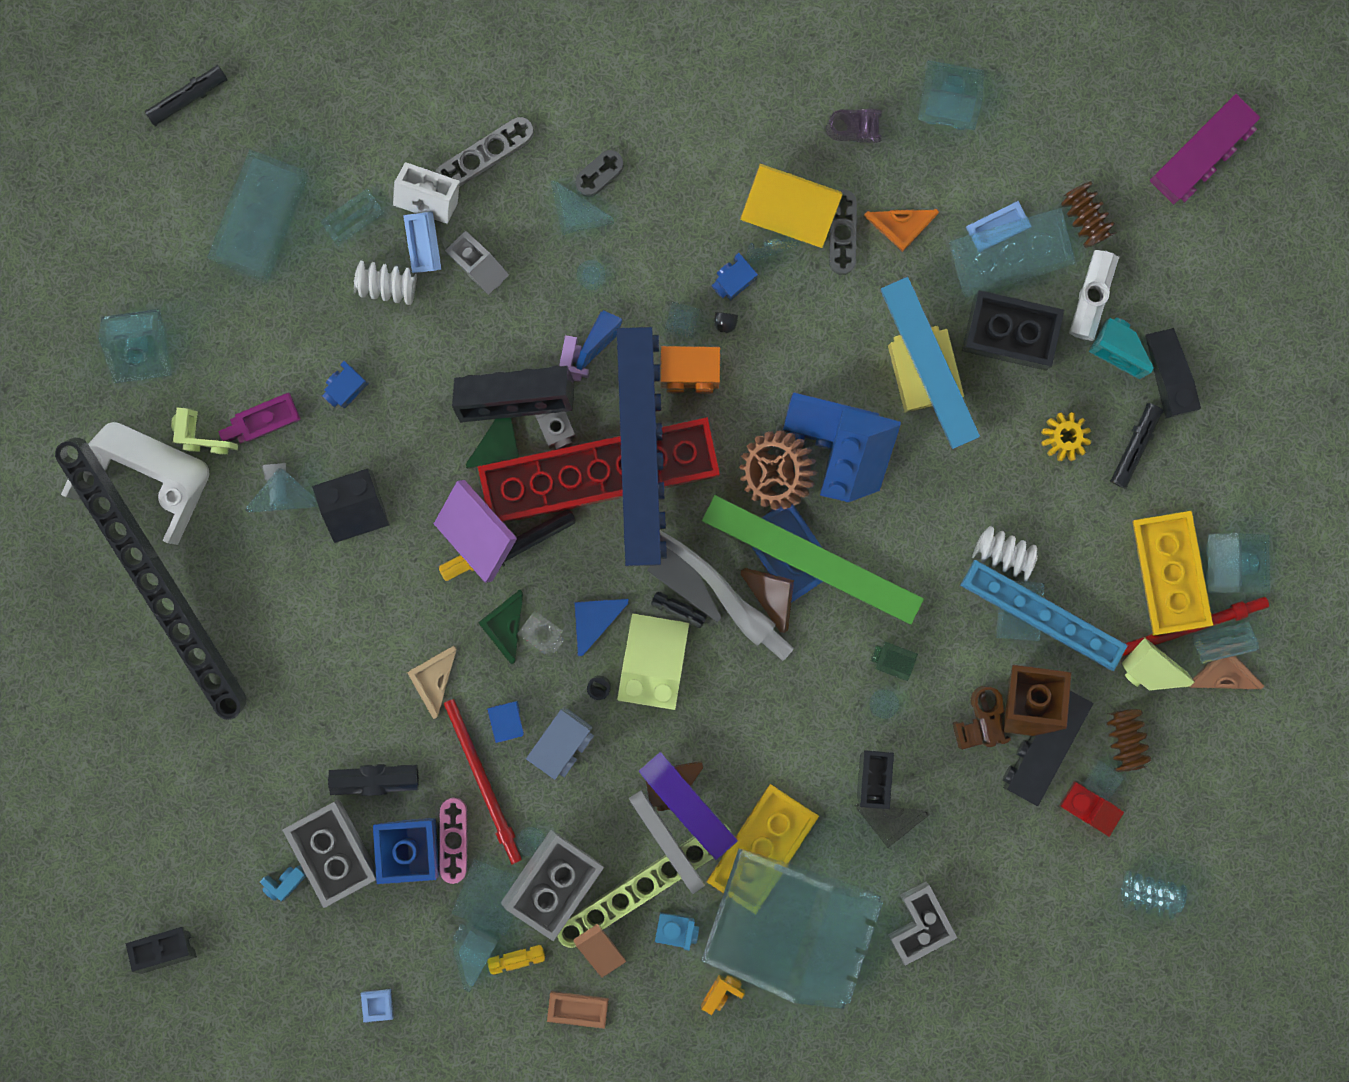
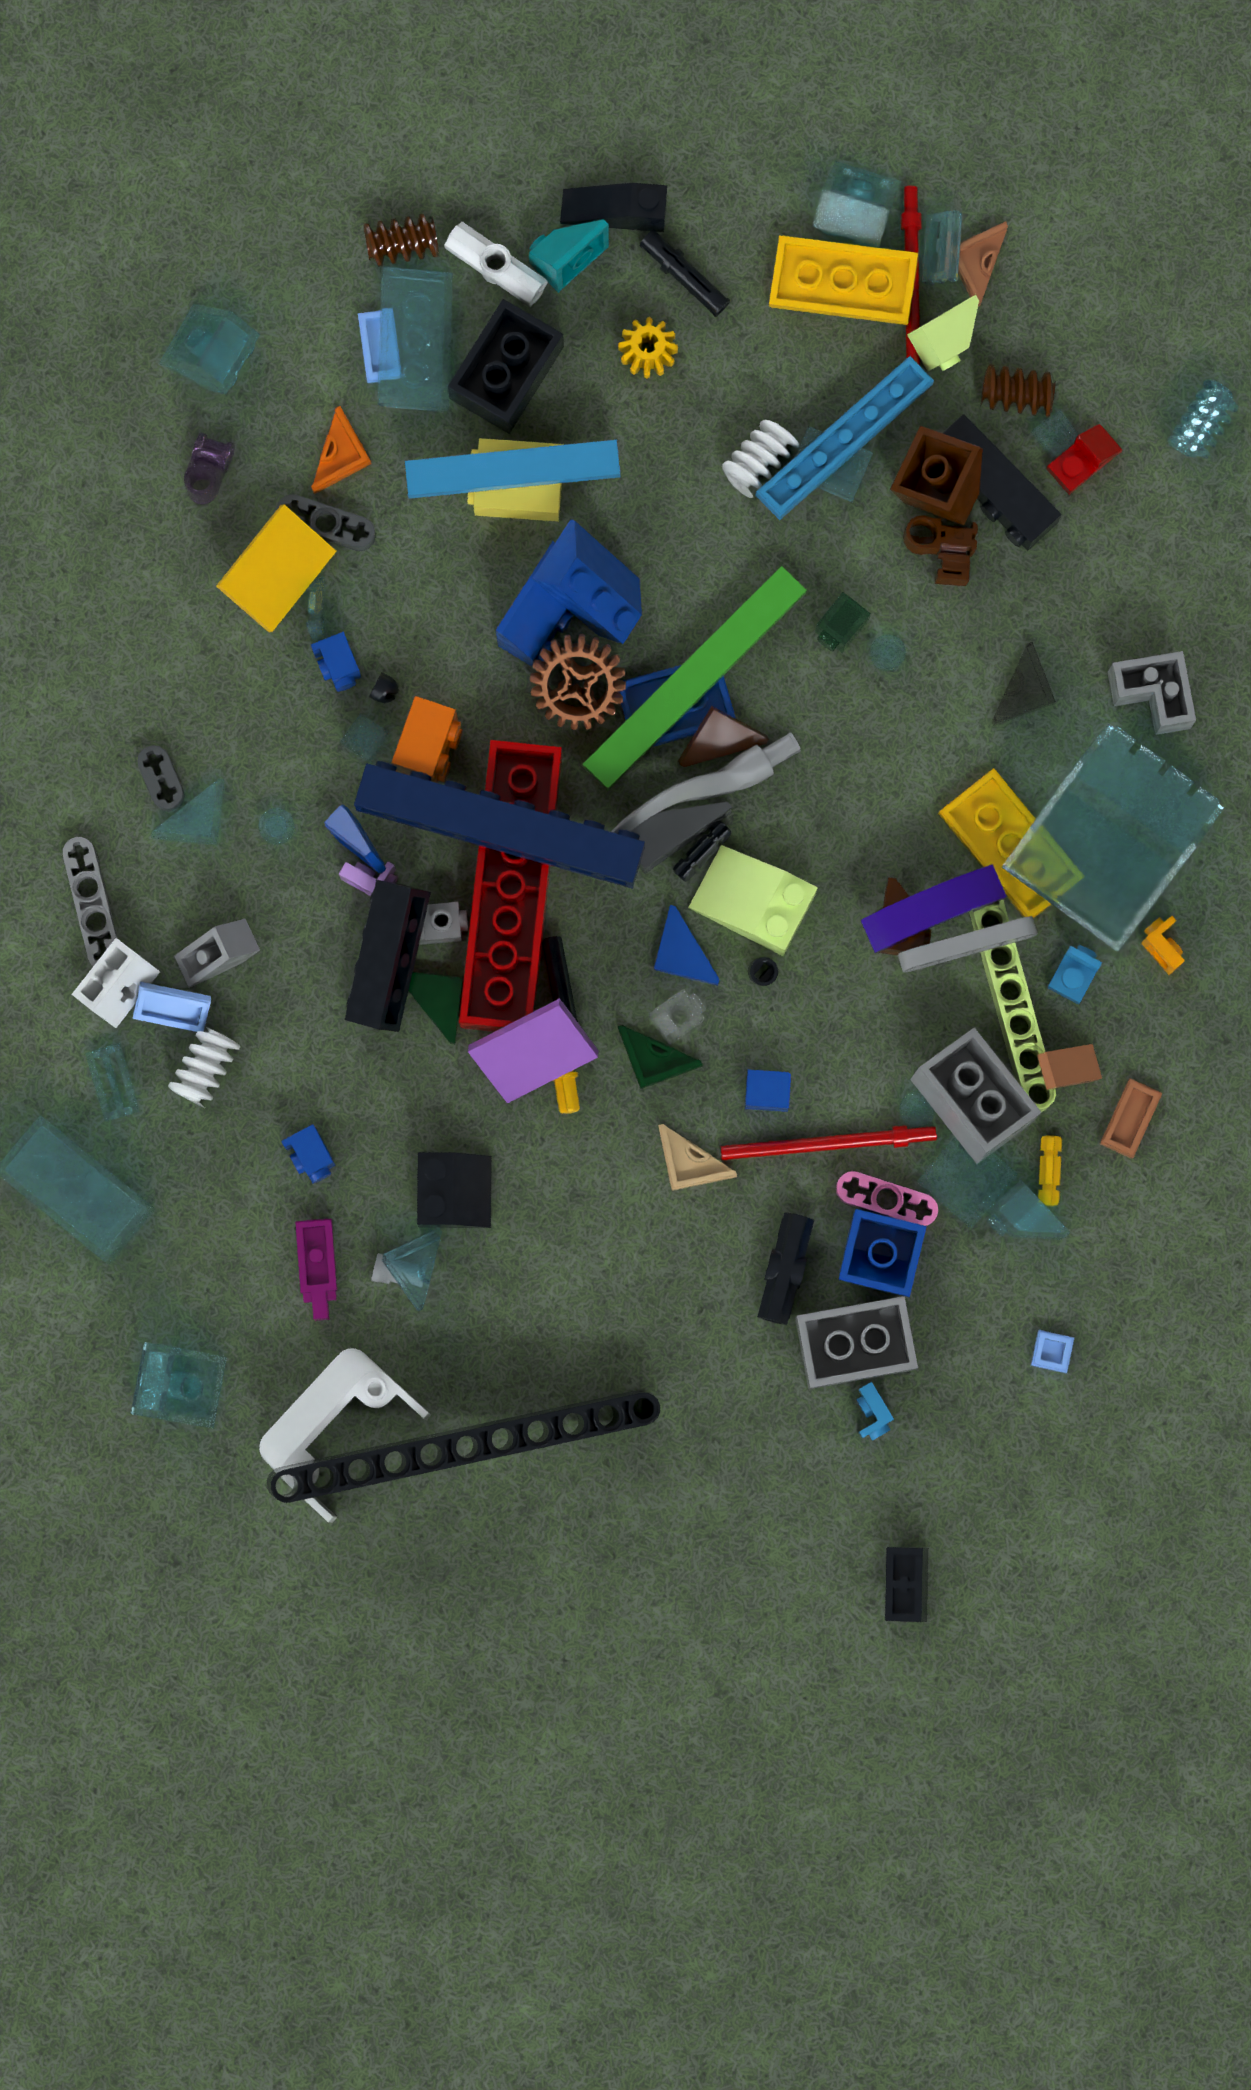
camera: 70 degrees left, 5 degrees down
(184, 430) = (292, 1358): yellowish green bracket -> none
(559, 742) = (814, 1027): sand blue brick -> none
(875, 779) = (970, 683): black torso -> none
(1205, 149) = (371, 86): magenta brick -> none

